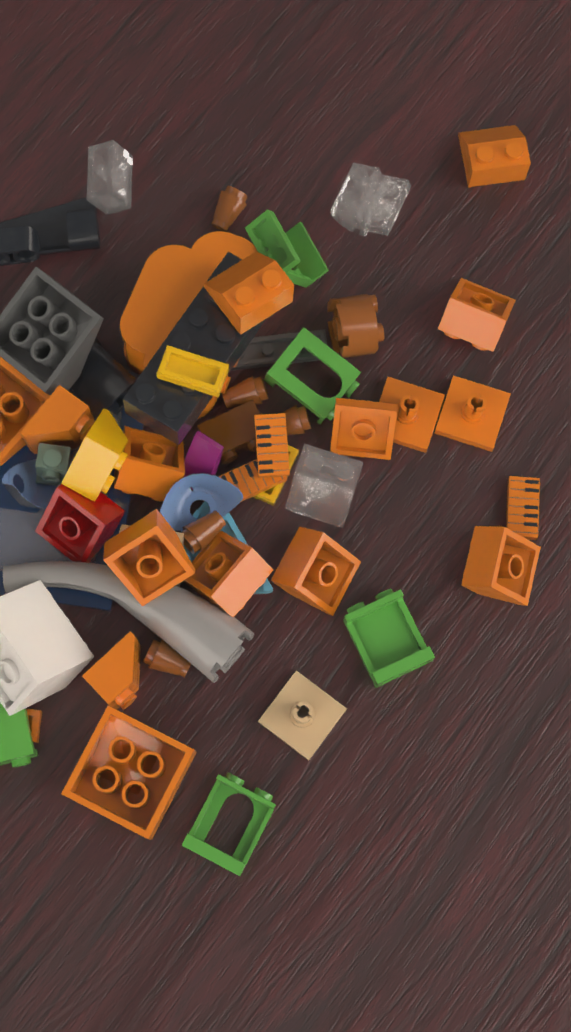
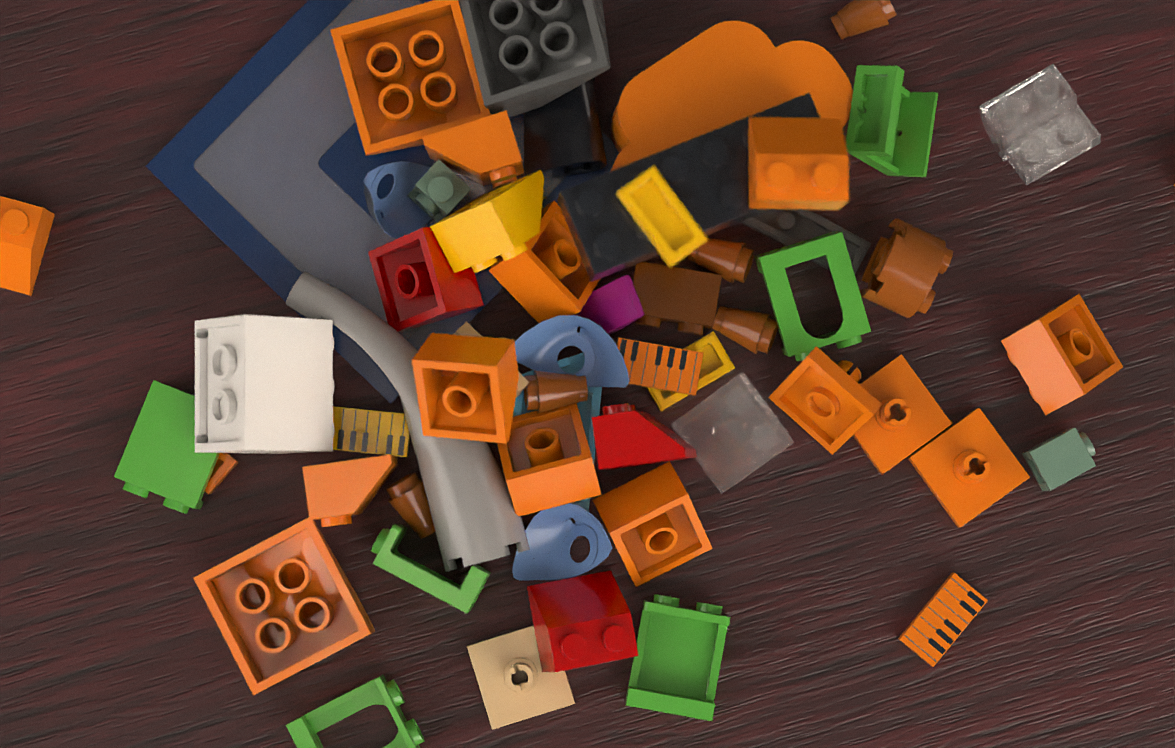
camera: 35 degrees right, 10 degrees up
(109, 633) = (370, 432): none -> yellow tile
(202, 694) = (391, 560): none -> bright green panel
(263, 621) = (550, 543): none -> medium blue piece
(271, 445) = (703, 347): orange tile -> none
(272, 524) = (635, 439): none -> red slope
(316, 656) = (581, 622): none -> red slope
(501, 564) = (866, 668): orange slope -> none
(519, 371) = (1060, 458): none -> sand green brick

